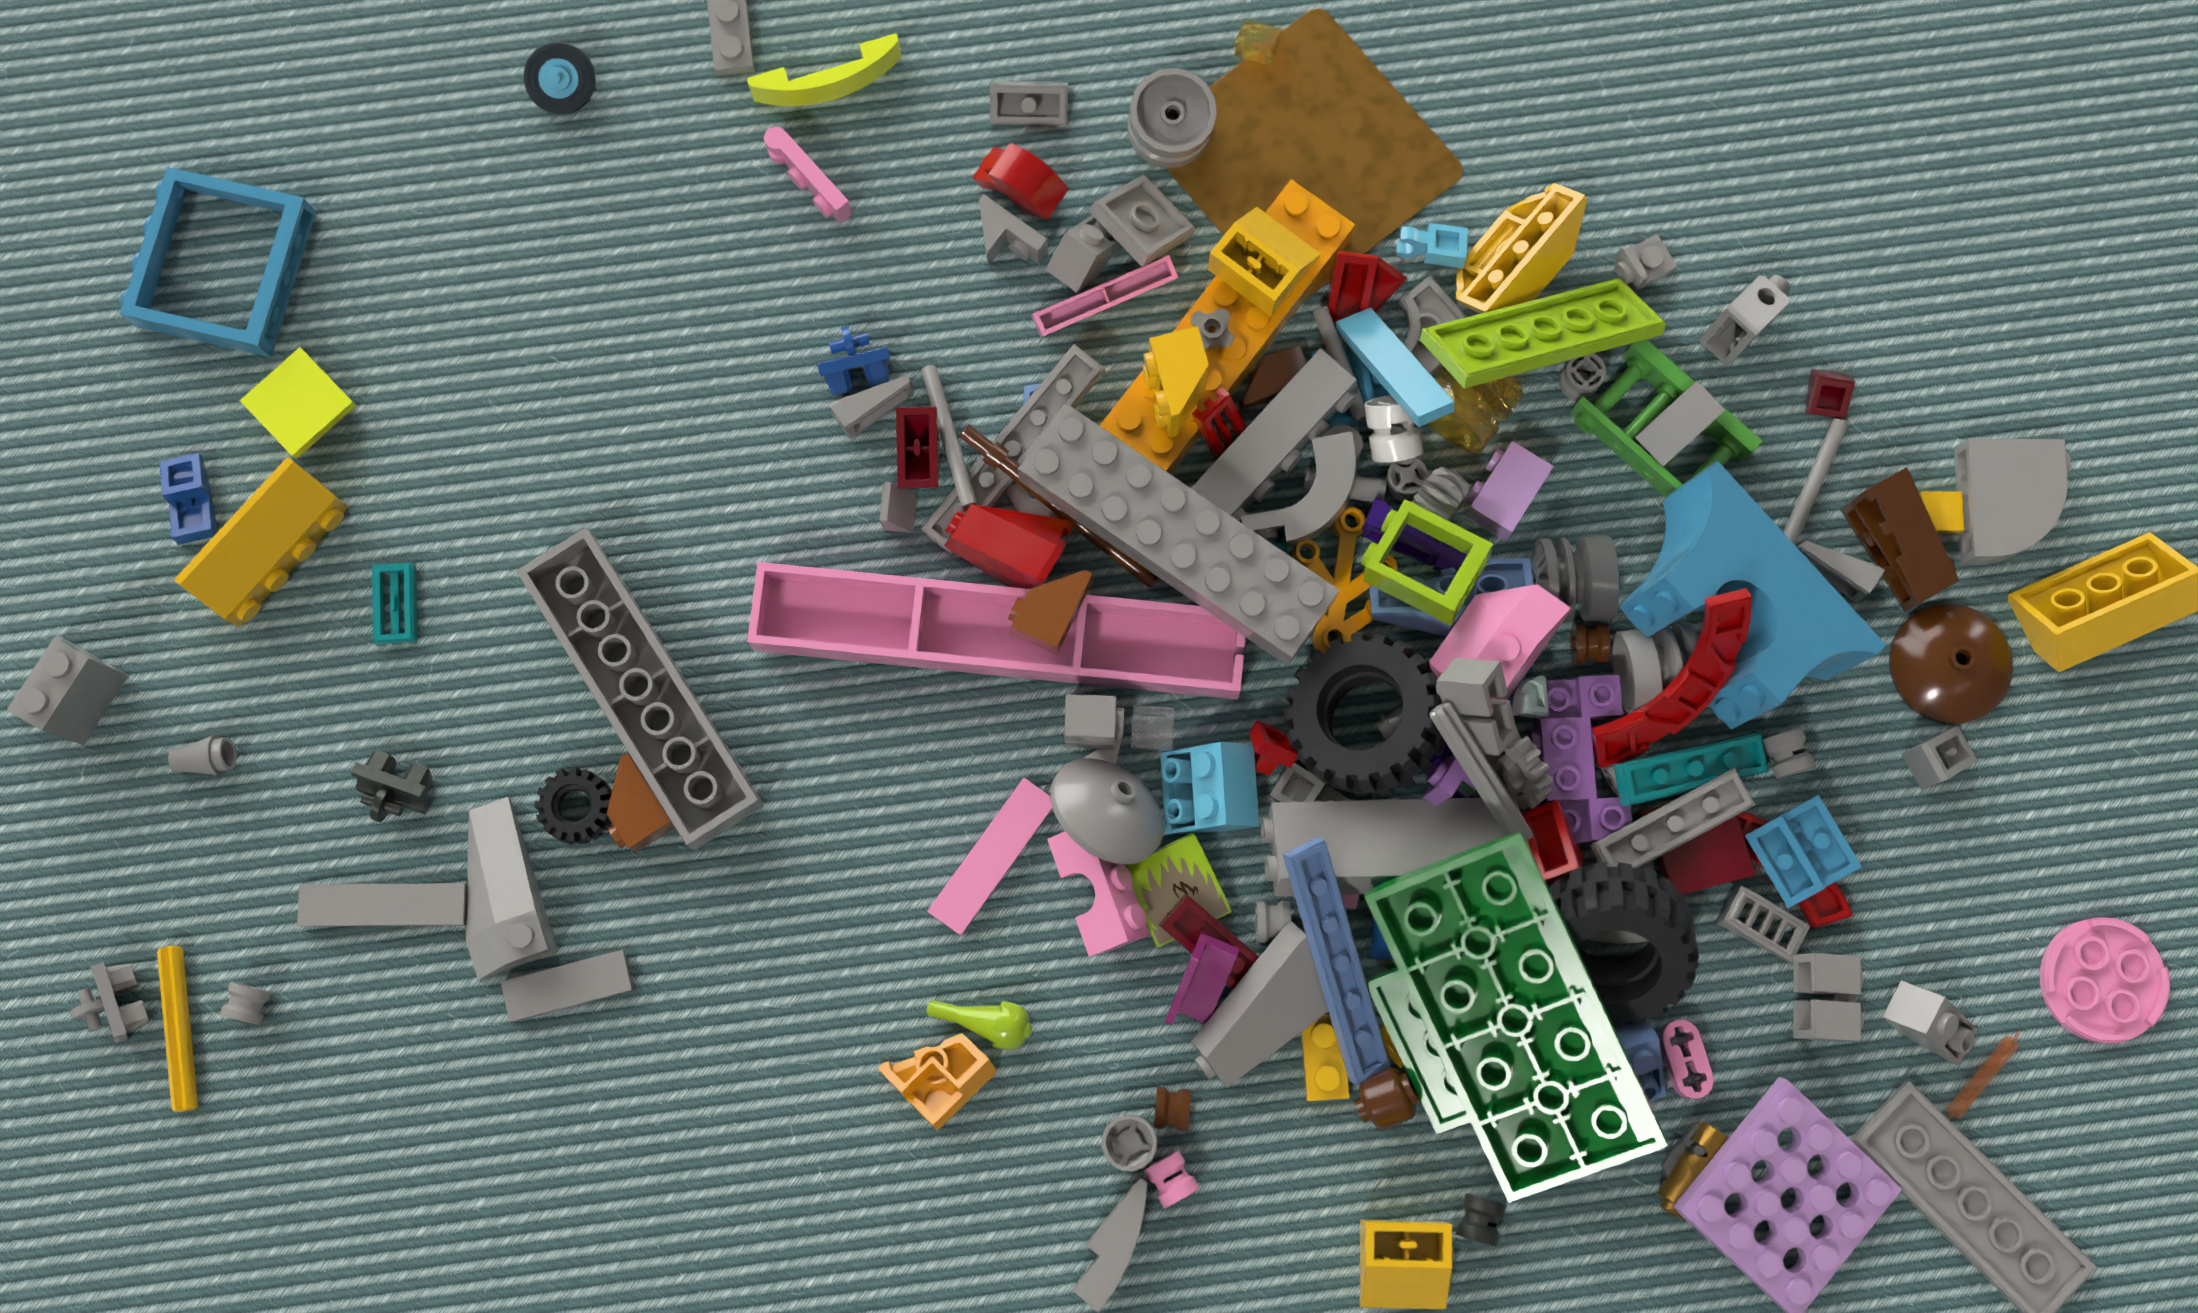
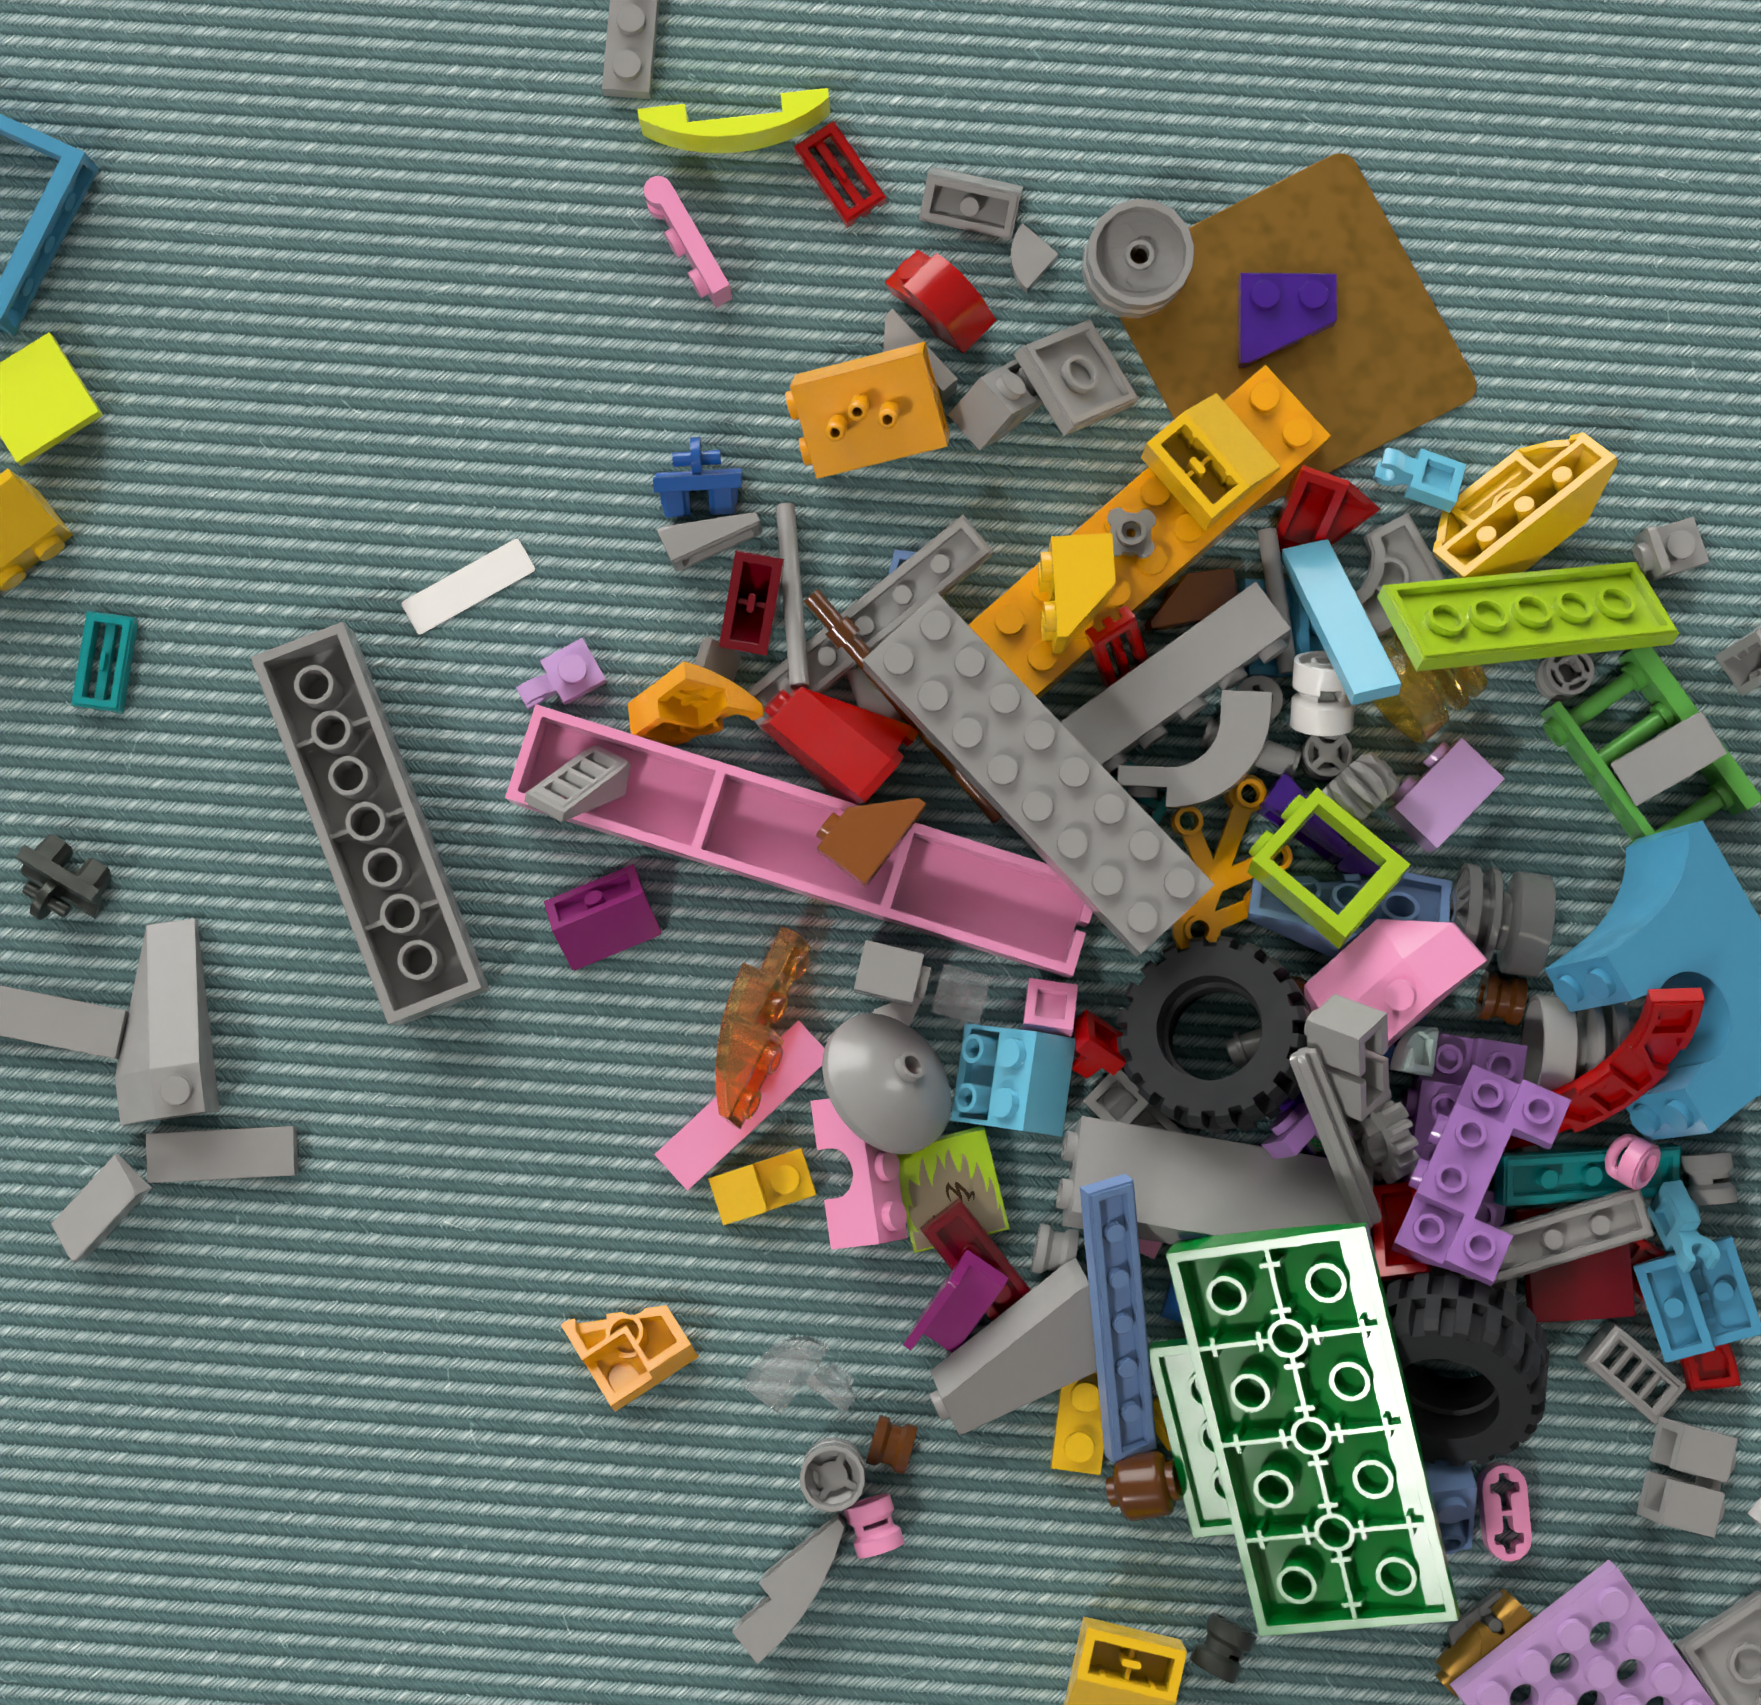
camera: 15 degrees right, 5 degrees up
(473, 1051) = (99, 1208): none -> light grey slope
(551, 799) = (241, 937): black tyre -> none
(559, 78) = (415, 63): black wheel -> none
(635, 809) = (336, 966): dark orange slope -> none
(682, 484) = (468, 586): none -> white sticker
(777, 536) = (568, 672): none -> lavender plate
(808, 619) = (586, 783): none -> light grey slope
(846, 727) = (602, 918): none -> magenta panel
(883, 539) = (688, 704): none -> light orange slope
(941, 122) = (861, 206): none -> red tile
(980, 277) = (868, 410): none -> light orange piece
(984, 798) = (746, 1042): none -> clear orange slope
(1002, 1024) = (715, 1306): lime piece -> none
(1021, 919) = (762, 1186): none -> yellow slope
(1074, 1060) = (792, 1363): none -> clear brick
(1085, 136) = (1030, 258): none -> light grey tile
(1104, 296) = (1012, 460): bright pink piece -> none
(1227, 722) = (1050, 1007): none -> bright pink tile
(1257, 42) = (1262, 182): clear yellow slope -> none
(1294, 138) = (1281, 310): none -> dark purple wing
(1582, 796) = (1450, 1188): none -> medium lavender bracket
(1728, 748) = (1637, 1162): none -> bright pink tile
(1770, 792) = (1676, 1223): none -> medium azure plate

